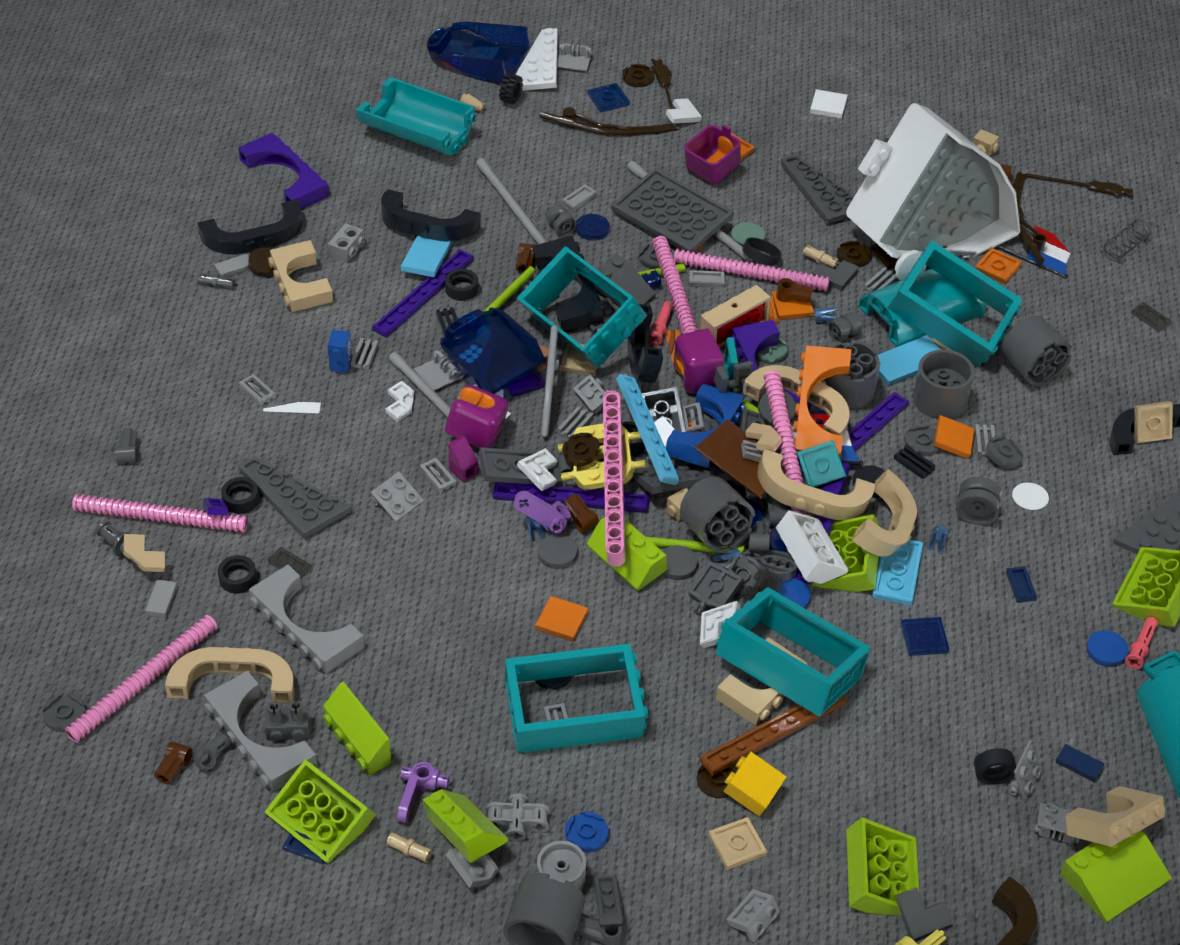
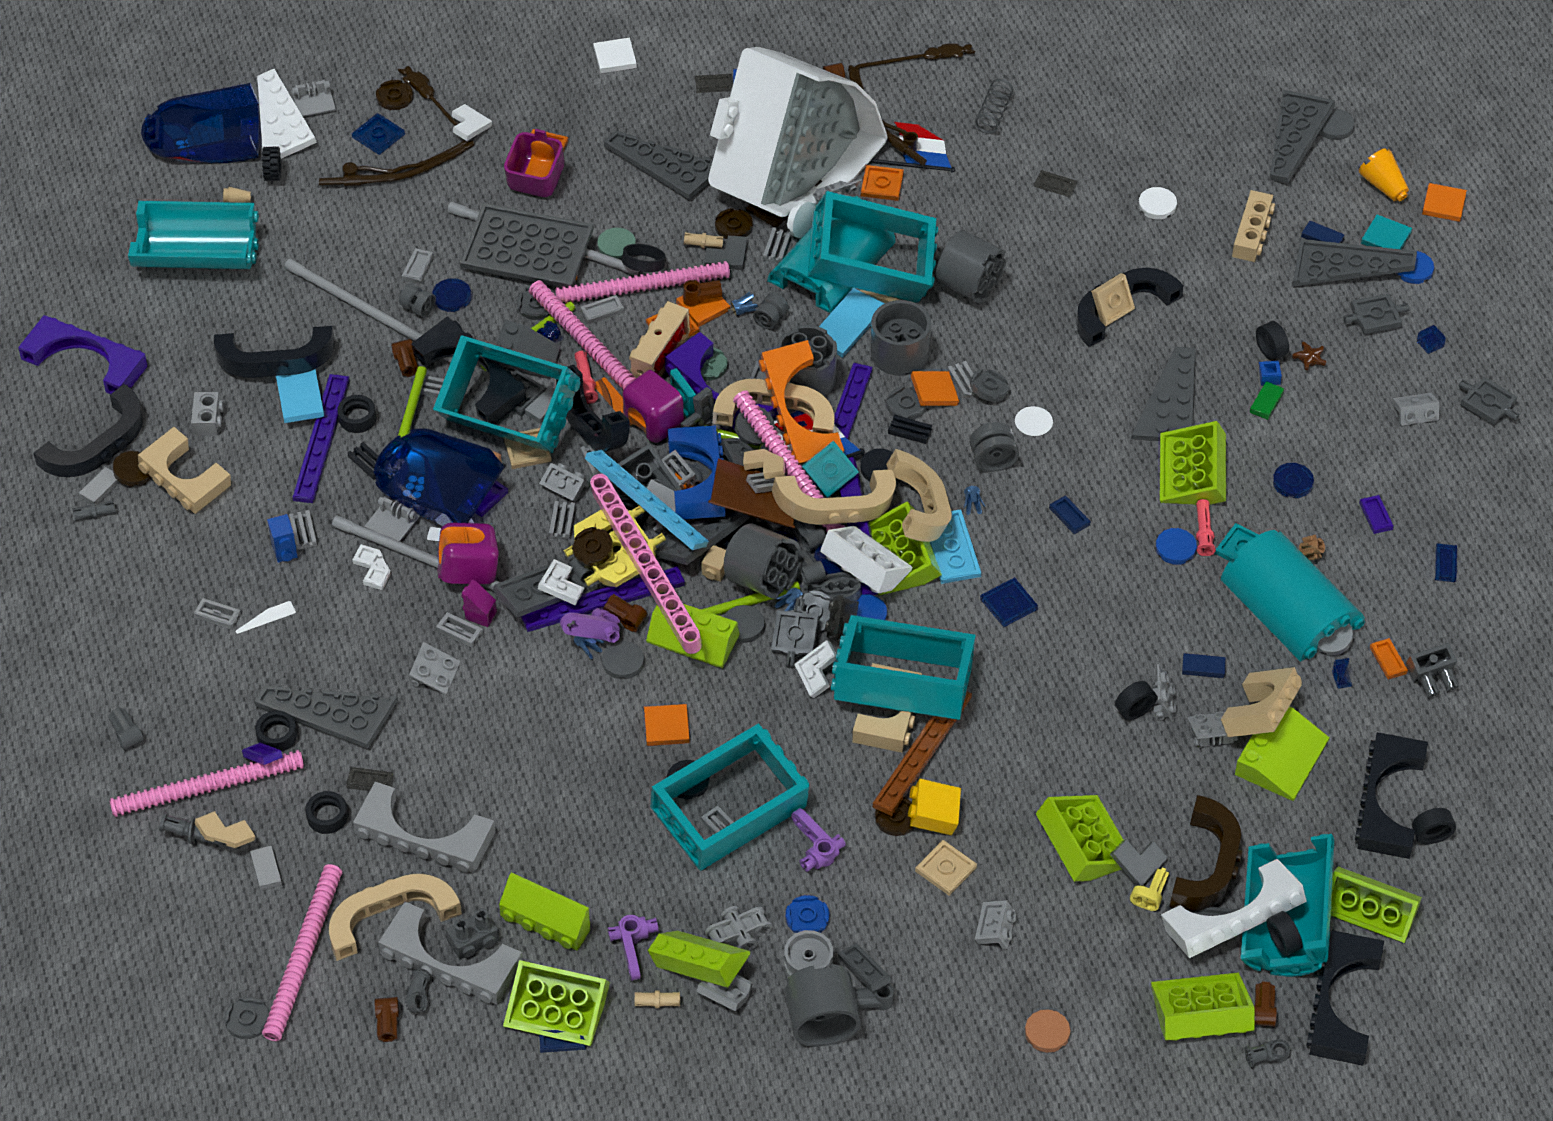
camera: 25 degrees left, 5 degrees up
(551, 380) = (516, 485): light grey piece -> none
(632, 773) = (821, 841): none -> medium lavender piece
(721, 379) = (686, 417): dark grey tile -> none
(986, 142) = (800, 45): tan brick -> none

